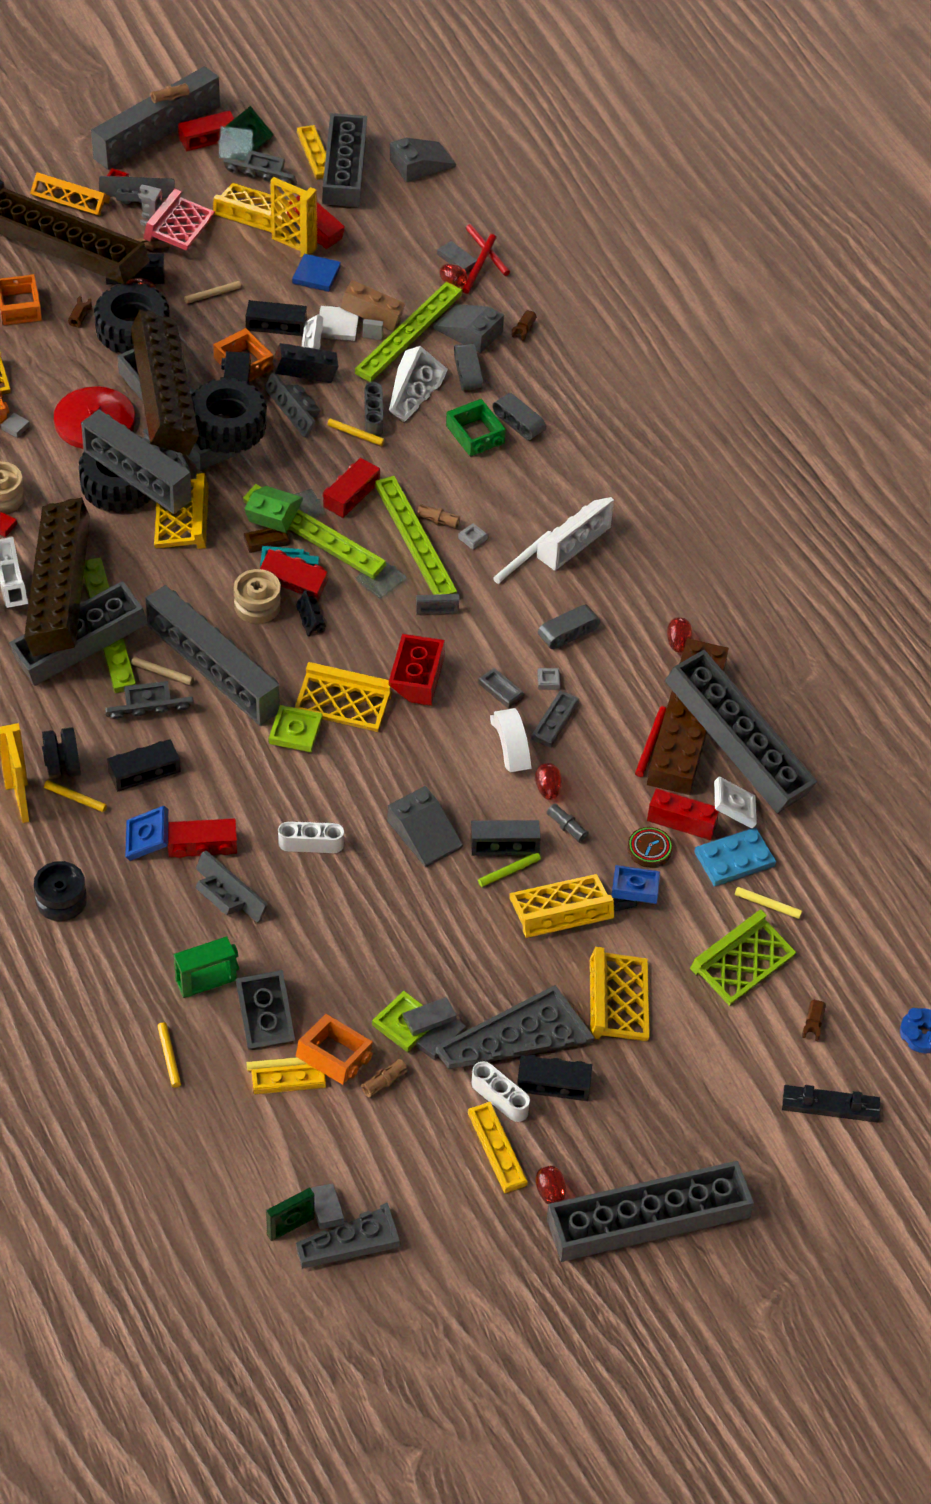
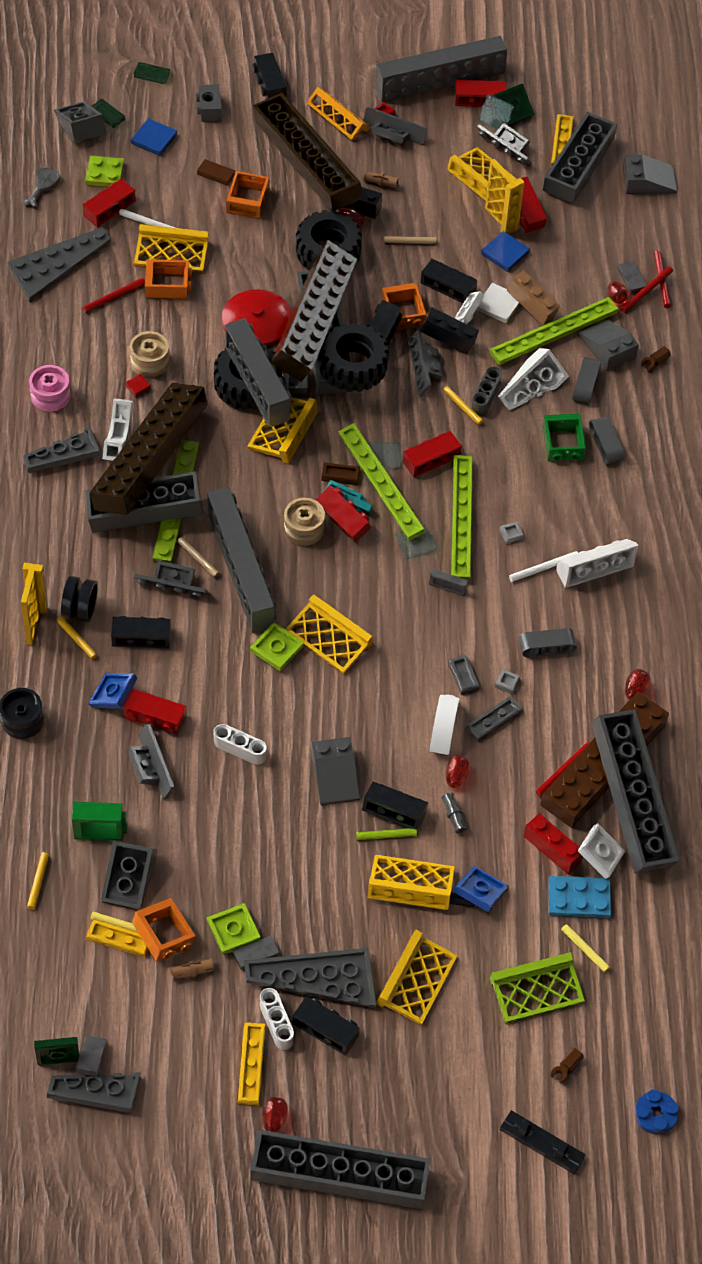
camera: 25 degrees right, 5 degrees up
(15, 425) = (191, 303): light grey tile -> none
(79, 312) = (292, 221): reddish brown bar -> none
(151, 201) = (396, 148): light grey hinge -> none
(166, 214) = (403, 159): coral fence -> none
(169, 93) = (456, 52): medium nougat pin -> none
(272, 508) = (355, 449): bright green slope -> none
(309, 614) = (338, 558): black hinge -> none
(372, 329) = (524, 319): light grey tile -> none
(417, 668) = (400, 632): red slope -> none
(429, 1016) = (252, 933): flat silver tile -> none
(438, 516) = (491, 504): medium nougat pin -> none
(650, 846) = (512, 860): tile -> none

